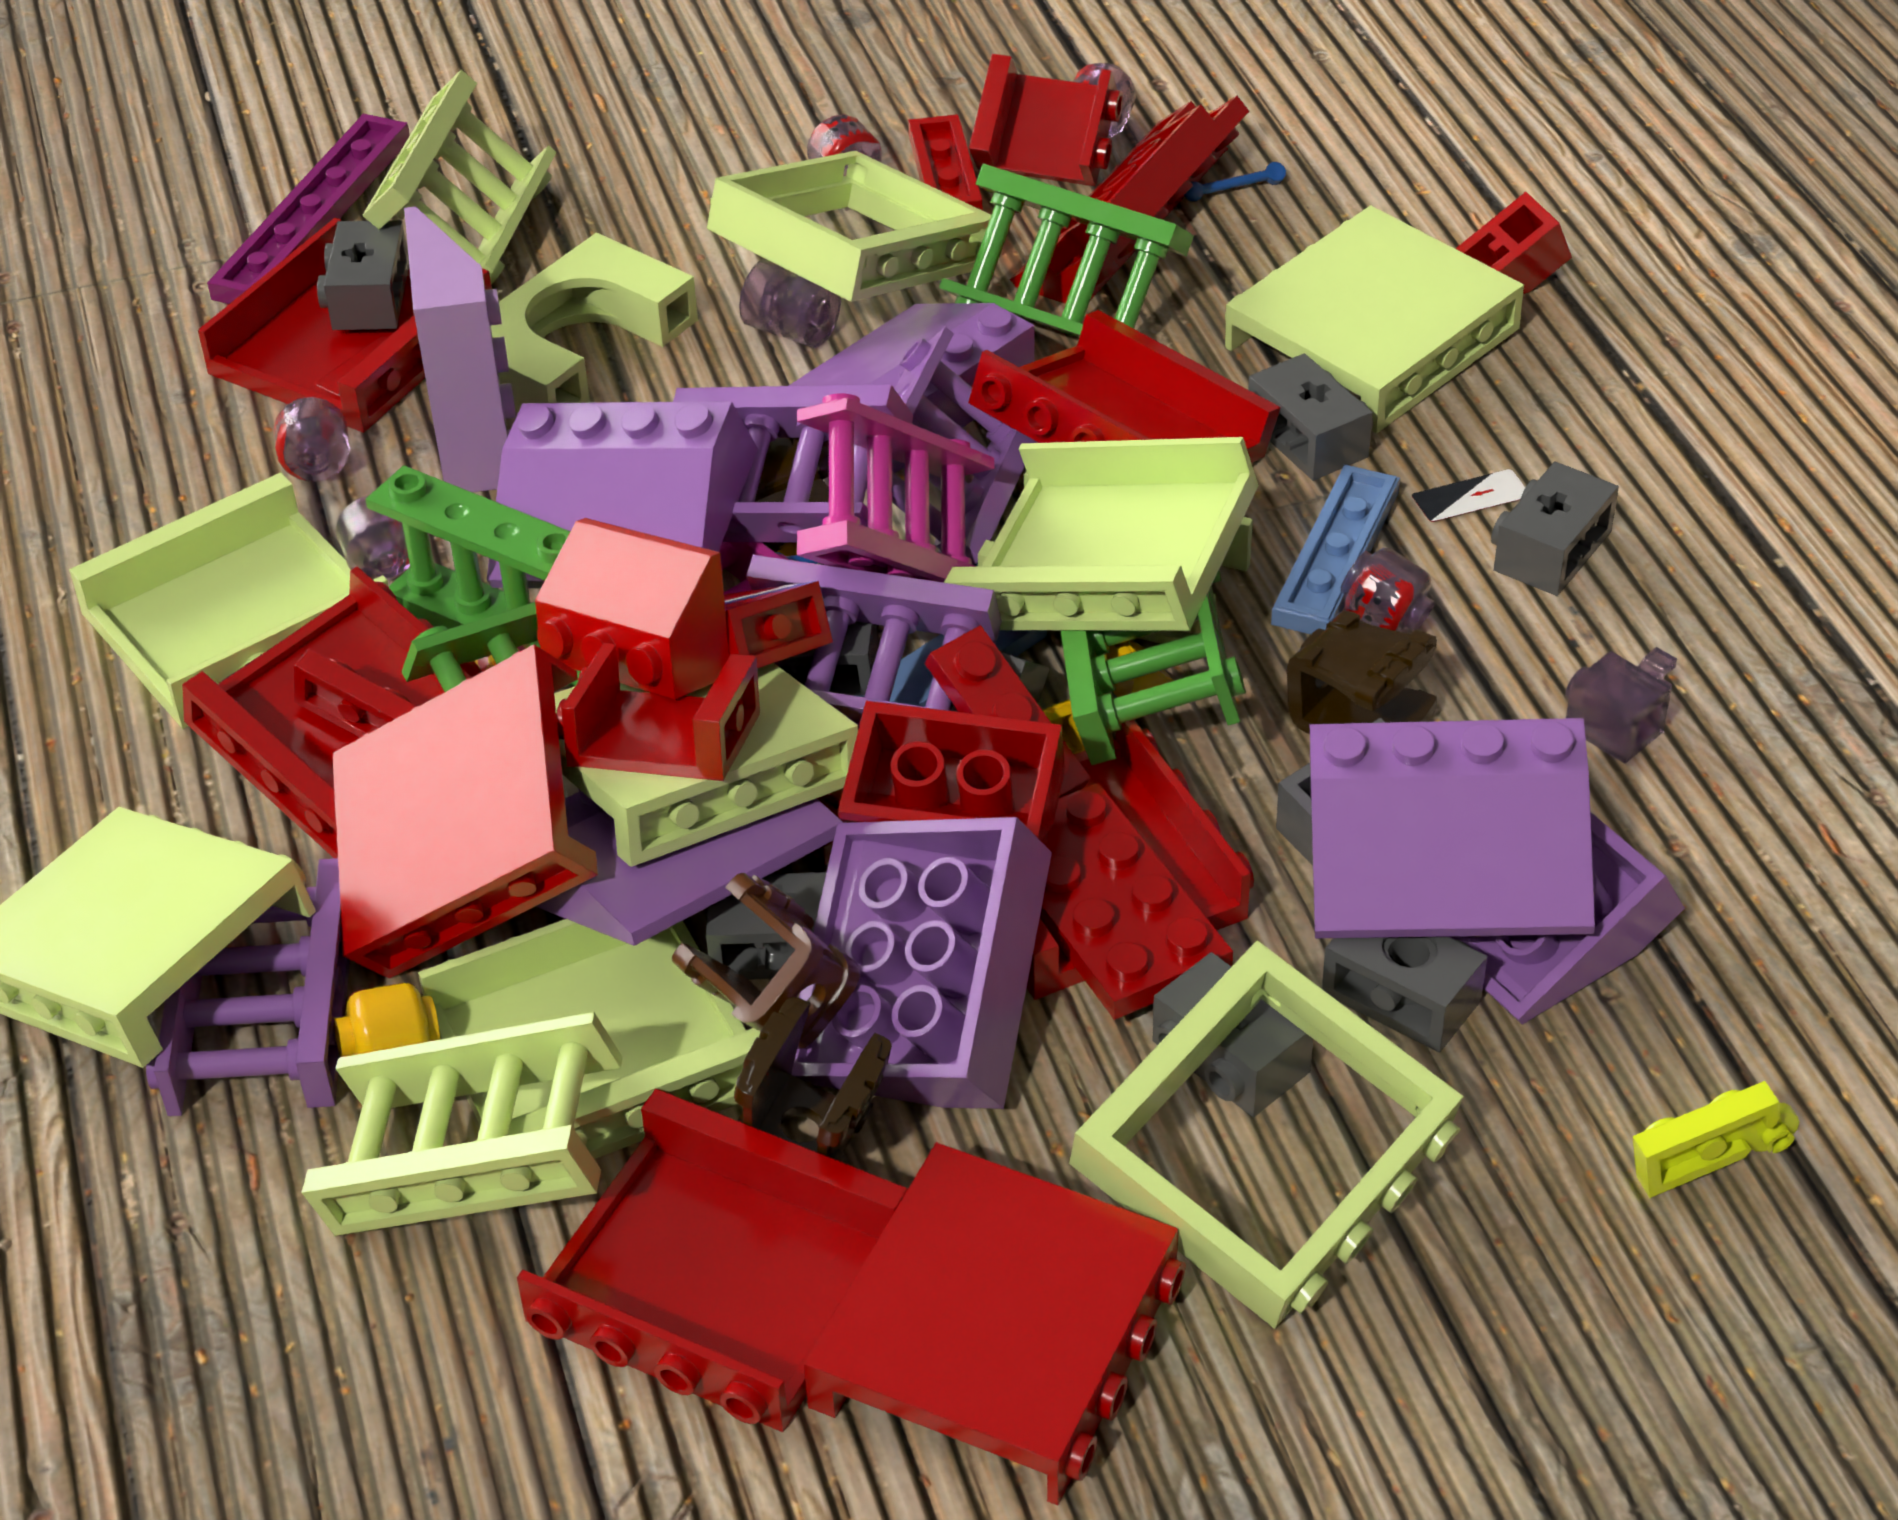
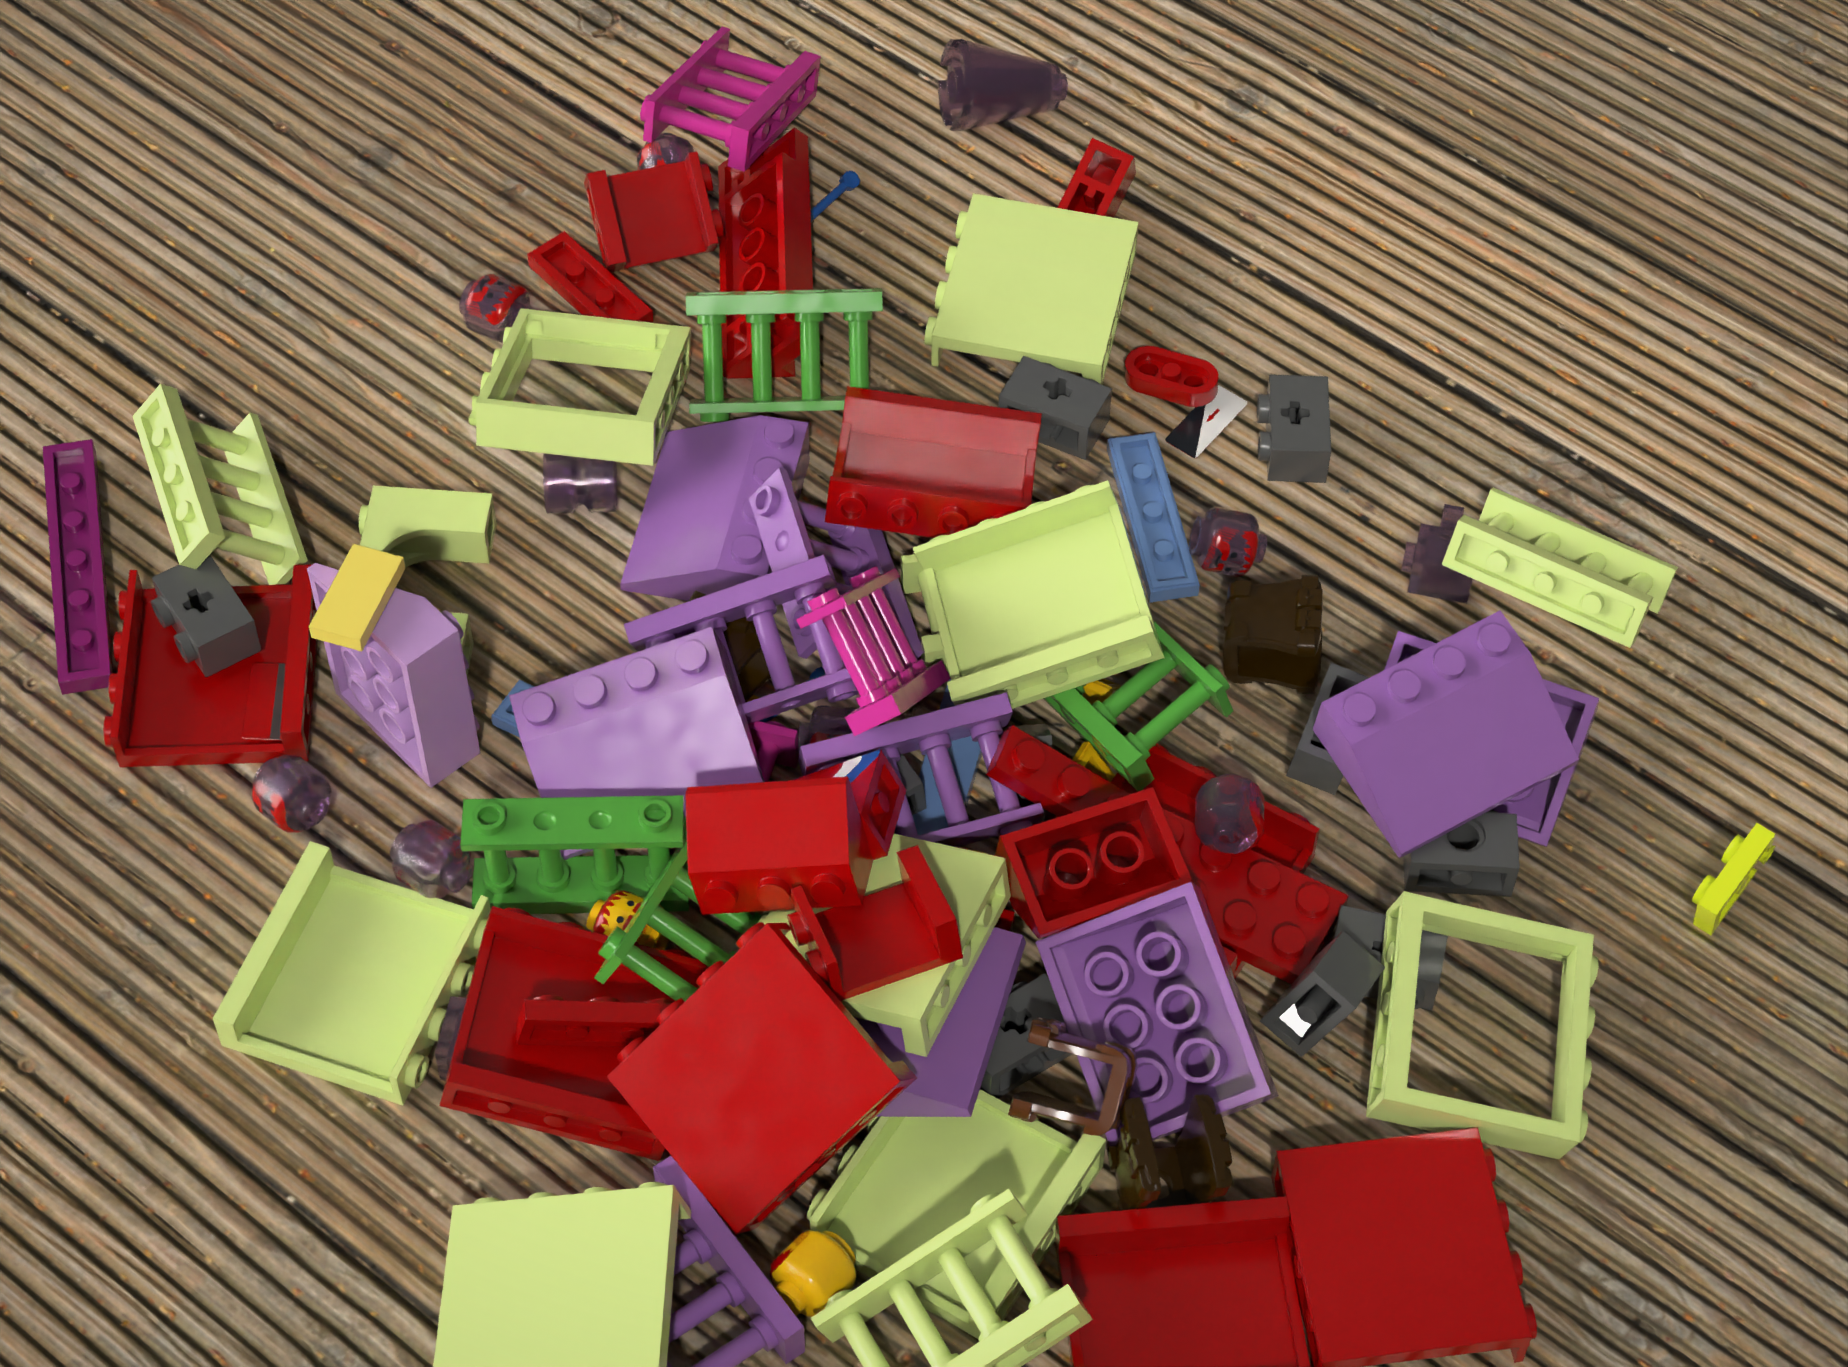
camera: 35 degrees left, 10 degrees up
(418, 239) = (357, 597): none -> light yellow tile
(1115, 1018) = (1323, 994): none -> dark grey slope
(1154, 810) = (1229, 814): none -> head
(1201, 58) = (753, 124): none -> dark pink fence
(1458, 436) = (1171, 376): none -> red plate
(1484, 137) = (995, 85): none -> cone
(1742, 752) = (1560, 566): none -> yellowish green fence

